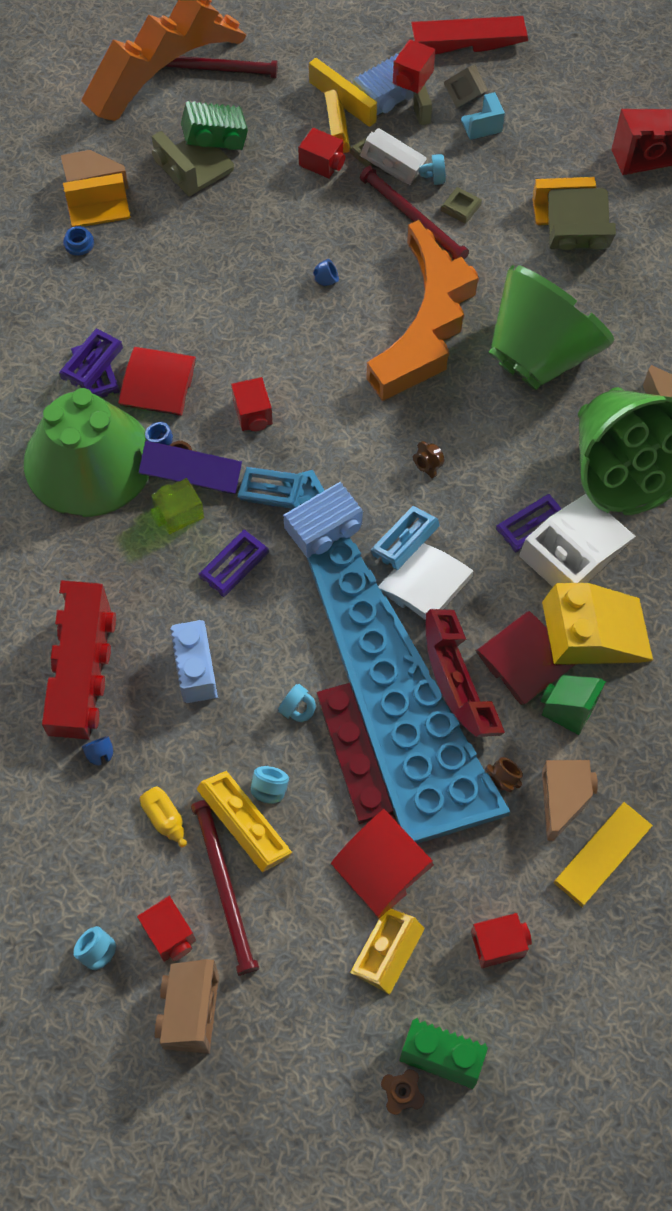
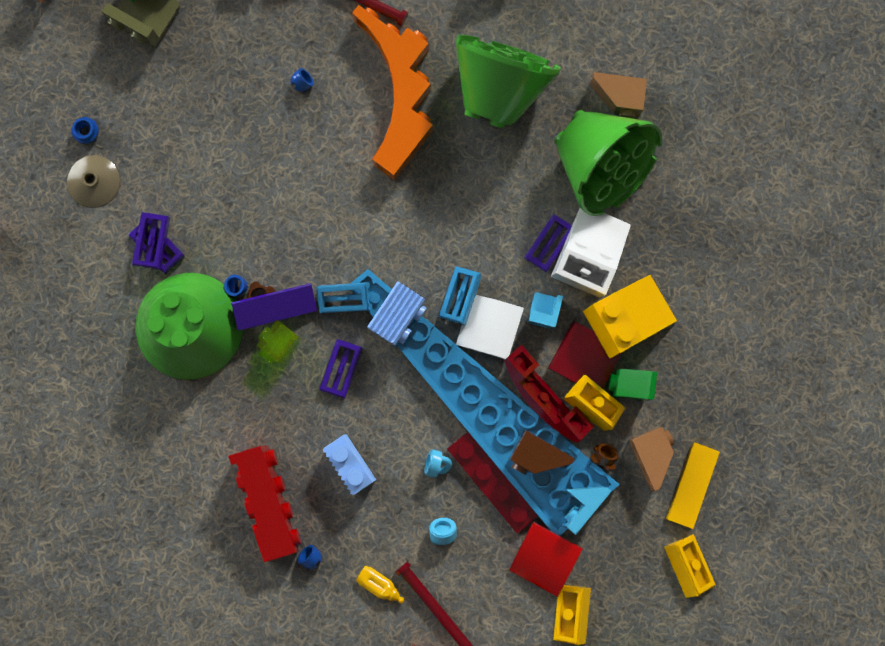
camera: 25 degrees left, 20 degrees up
(62, 299) = (104, 186): none -> dark tan dish
(90, 165) = (64, 62): medium nougat slope -> none
(96, 200) = (81, 86): light orange panel -> none
(157, 381) = (211, 236): red slope -> none
(244, 821) = (437, 567): yellow tile -> none
(252, 404) = (296, 230): red brick -> none
(422, 731) = (537, 455): none -> reddish brown slope
(428, 458) = (452, 221): reddish brown plate -> none
(464, 805) = (590, 500): none -> medium azure slope
(496, 589) = (545, 310): none -> medium azure panel
(501, 940) = (647, 579): red brick -> none
(516, 708) = (595, 403): none -> yellow slope
(563, 952) = (690, 566): none -> yellow slope

